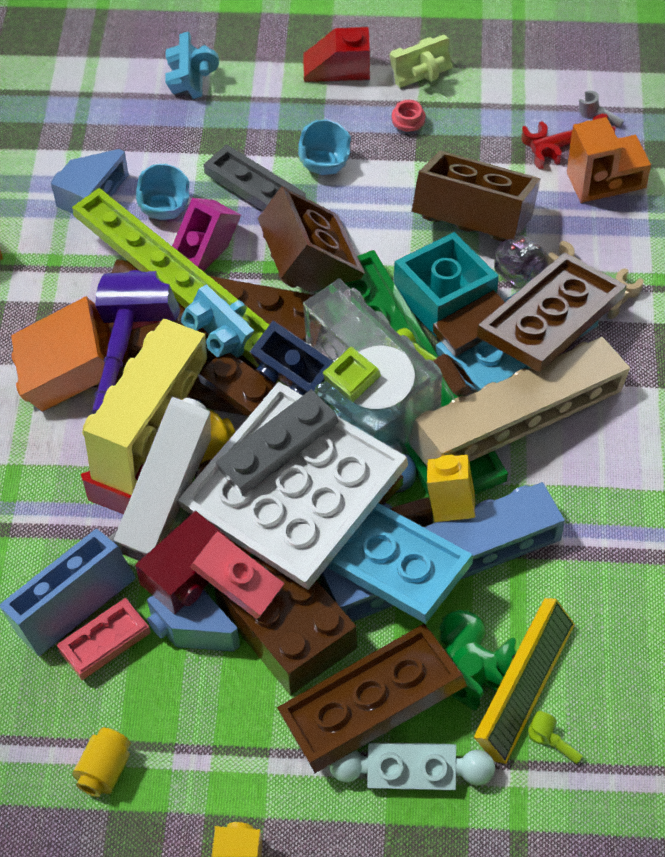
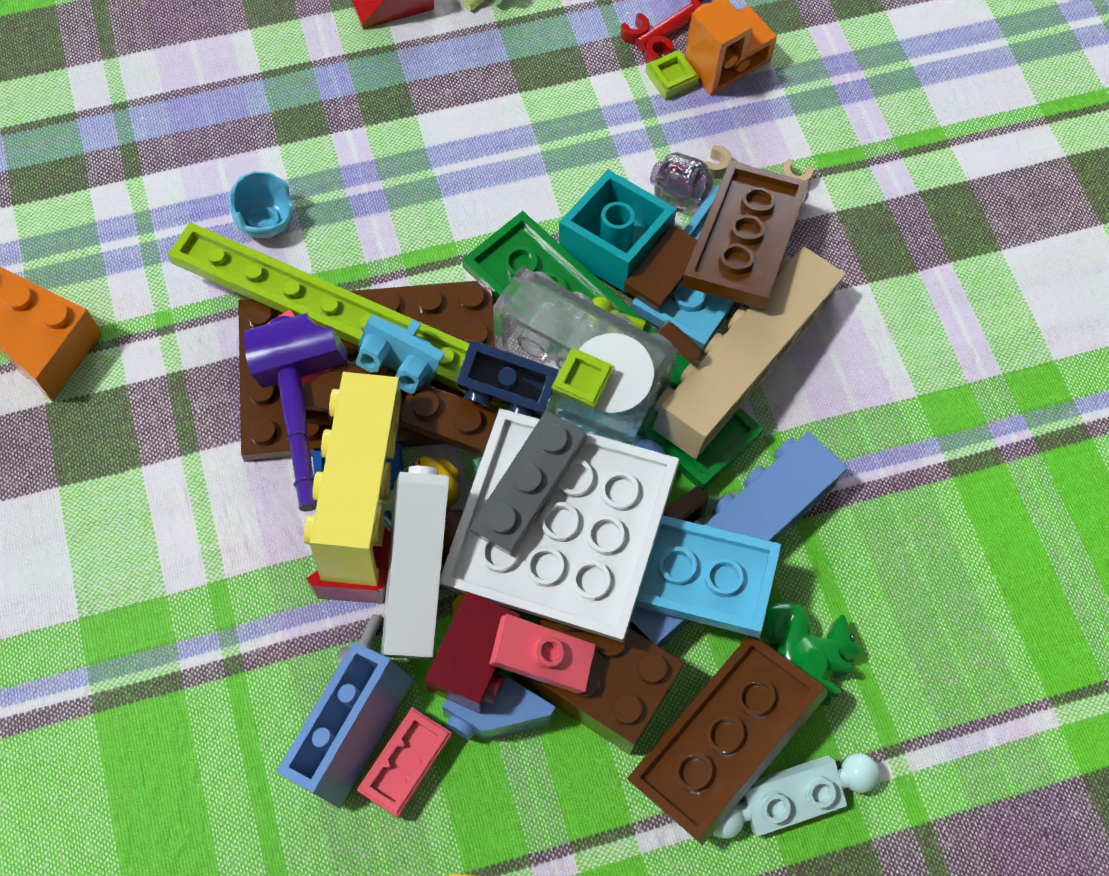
camera: 25 degrees left, 10 degrees up
(60, 354) = (225, 438): orange brick -> none
(87, 174) = (167, 211): medium blue slope -> none
(189, 66) = (235, 40): medium azure hips -> none
(205, 231) = (328, 240): dark pink slope -> none
(245, 177) = (359, 165): dark grey plate -> none
(307, 242) = (450, 224): reddish brown slope -> none
(324, 147) = (421, 103): medium azure hair -> none
(408, 115) = (495, 34): coral plate -> none
(451, 488) = (724, 471): yellow brick -> none
(475, 195) = (612, 120): reddish brown brick -> none
(524, 681) = (870, 659): tile -> none
(542, 730) = (905, 707): lime hand -> none
(554, 177) = (672, 74): none -> lime tile

